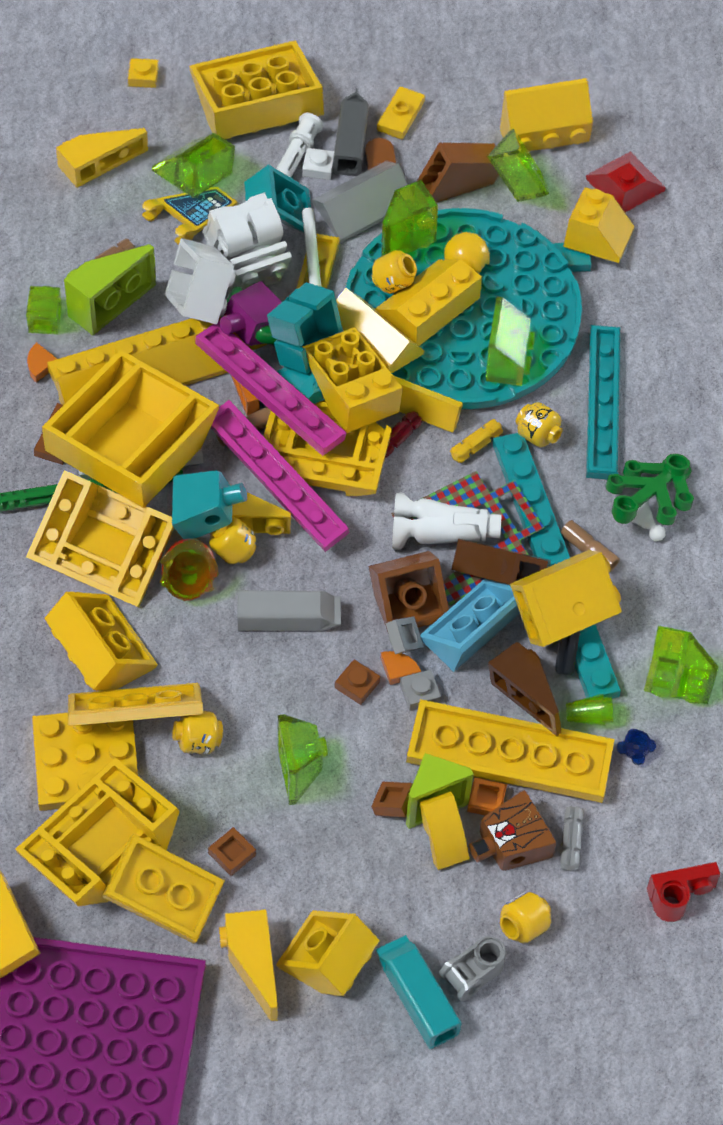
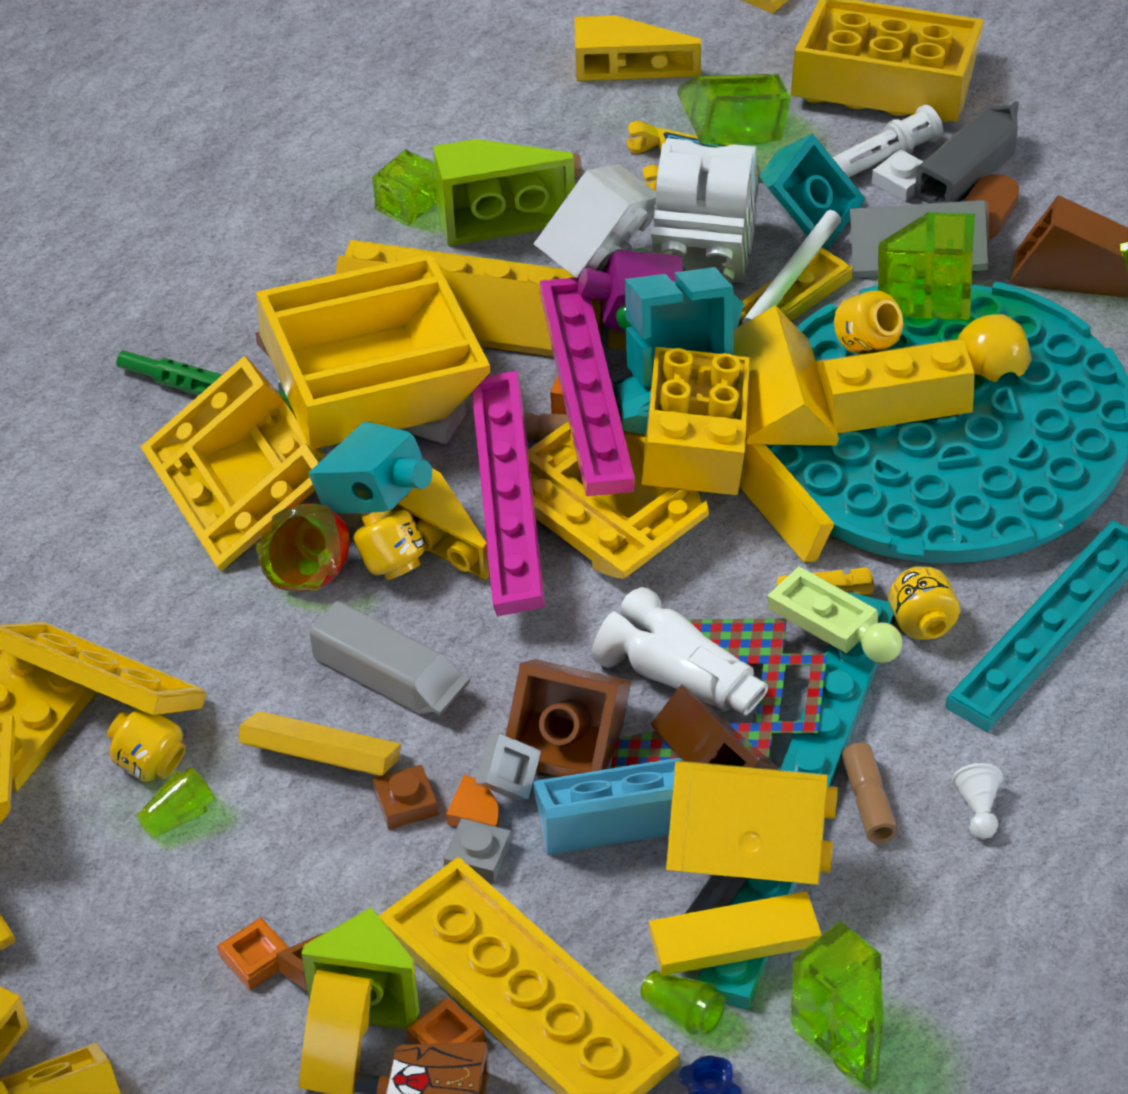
camera: 40 degrees right, 10 degrees down
(37, 362) = (357, 231): orange tile -> none
(99, 640) = (131, 578): yellow slope -> none
(232, 851) = (58, 910): dark orange plate -> none
(242, 755) = (176, 803): none -> clear neon green cone
(290, 677) = (319, 743): none -> yellow tile
(300, 754) = (232, 836): clear neon green slope -> none
(353, 813) = (252, 953): none -> orange tile
(400, 112) = (1066, 162): yellow plate -> none
(403, 430) = (727, 528): dark red axle -> none
(506, 457) = (834, 616): none -> yellowish green plate
(509, 344) = (946, 471): clear neon green slope -> none
(522, 679) = (618, 912): reddish brown slope -> none
(593, 661) = (733, 933): none -> yellow tile
(673, 468) = (1076, 755): green plant -> none

